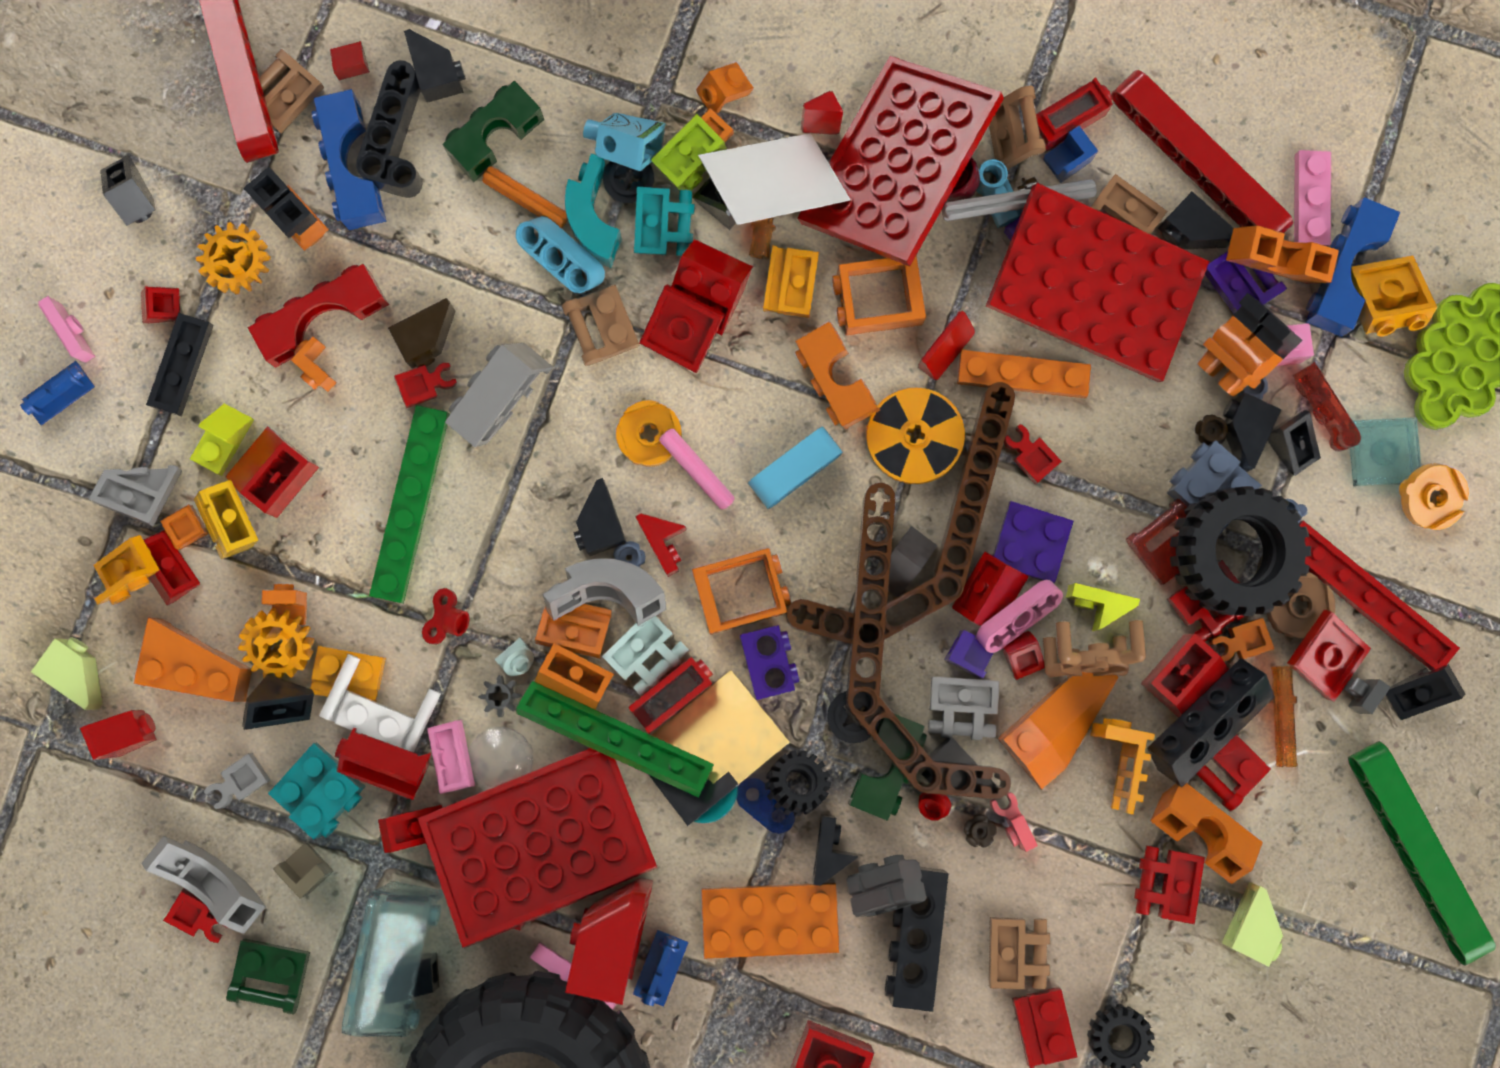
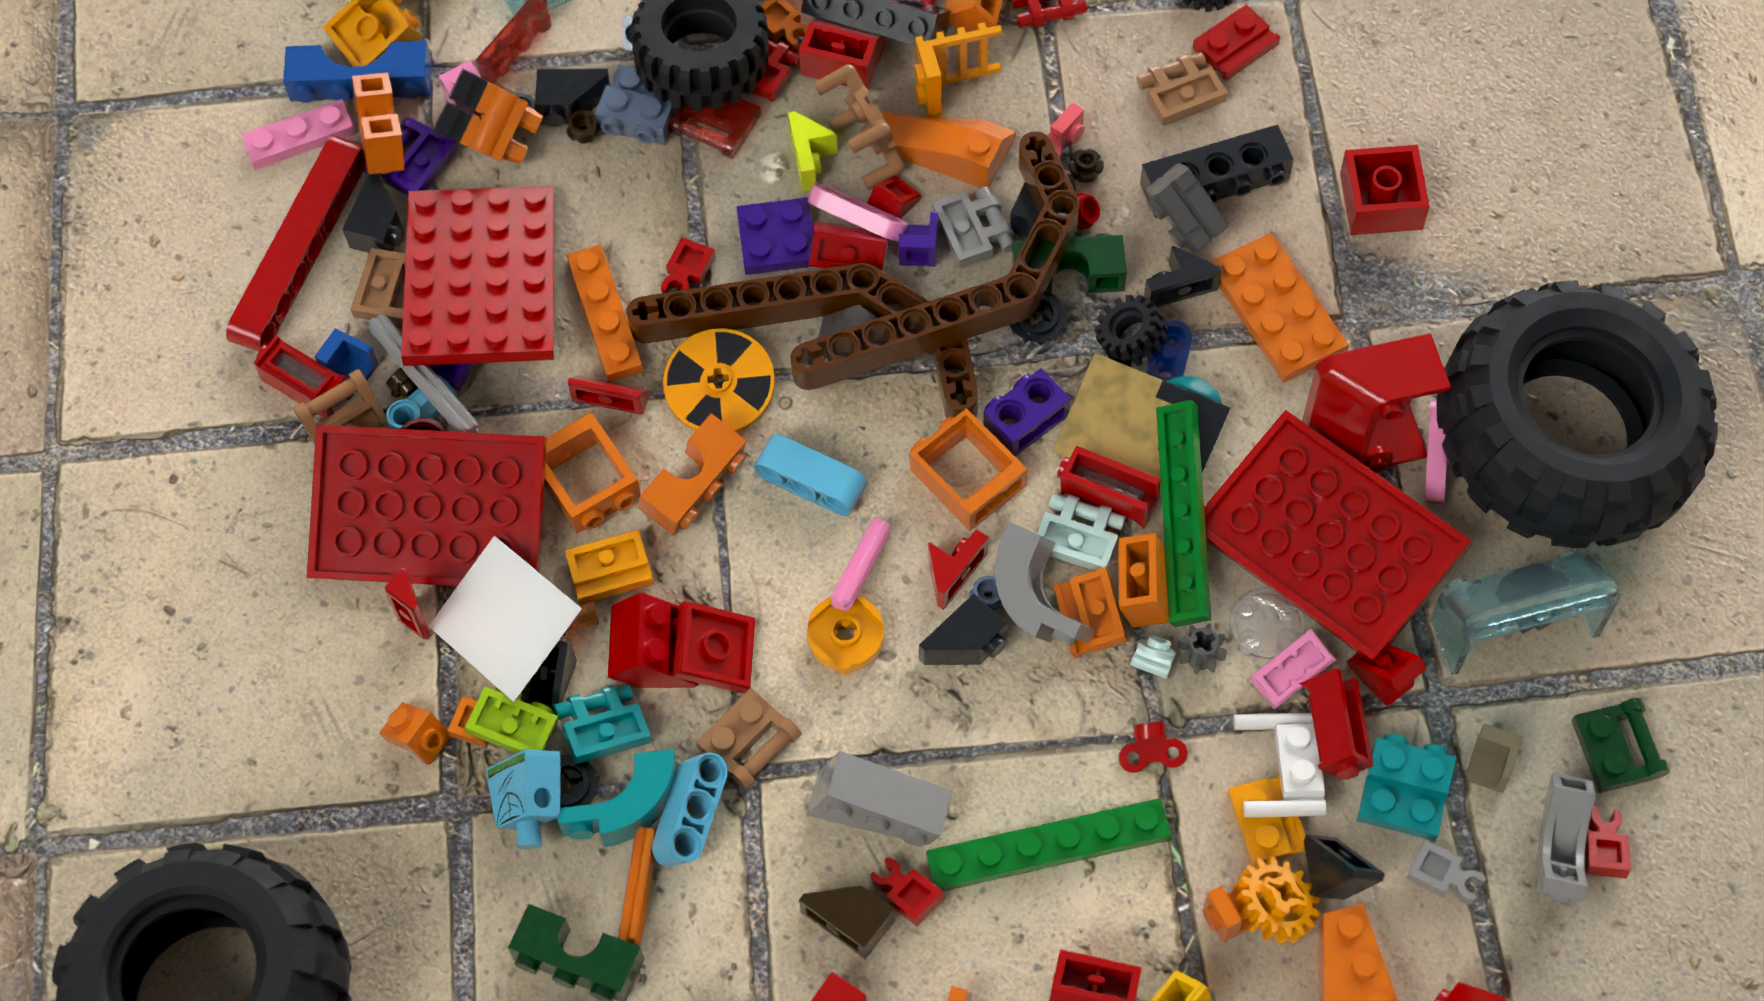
camera: 110 degrees left, 20 degrees down
(1295, 442) = (560, 51): black slope -> none

